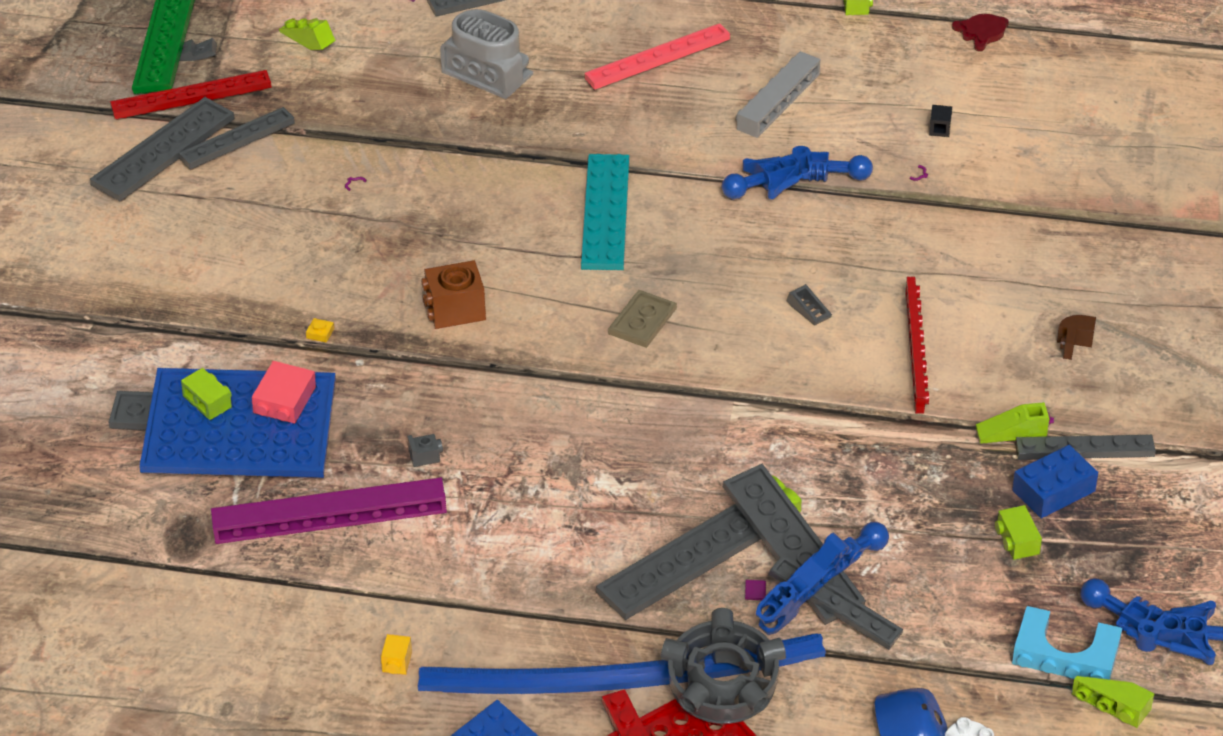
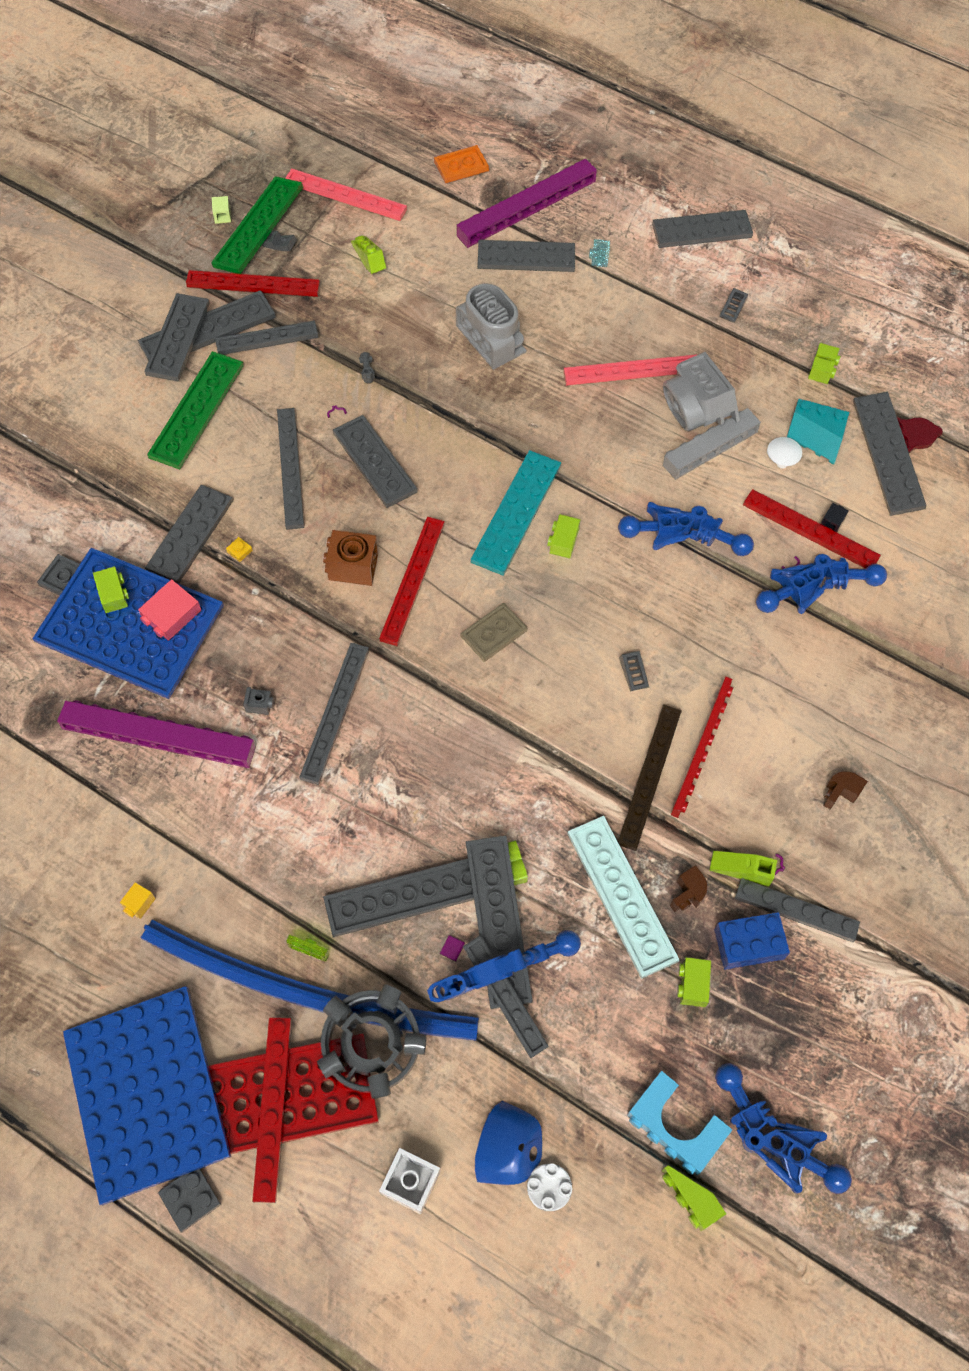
camera: 20 degrees right, 20 degrees up
(113, 38) = (221, 209): none -> yellowish green brick
(137, 161) = (177, 337): none -> dark grey plate
(195, 223) = (195, 410): none -> green plate
(256, 328) = (189, 534): none -> dark grey plate
(334, 245) = (290, 469): none -> dark grey plate
(371, 137) = (368, 373): none -> dark grey bar
(425, 210) = (375, 461): none -> dark grey plate
(513, 435) = (334, 714): none -> dark grey plate
(529, 300) = (412, 581): none -> red plate
(605, 633) = (307, 947): none -> clear neon green plate
(670, 214) = (564, 536): none -> lime brick
(746, 49) = (700, 394): none -> light grey brick
(857, 81) = (784, 451): none -> white dish
(876, 386) = (649, 778): none -> dark brown plate
(881, 50) = (818, 428): none -> teal wedge
(906, 489) = (623, 897): none -> light aqua plate
(922, 138) = (811, 529): none -> red plate
(943, 179) = (805, 585): none -> blue piece
(965, 52) = (889, 454): none -> dark grey plate
(972, 460) = (694, 888): none -> reddish brown brick

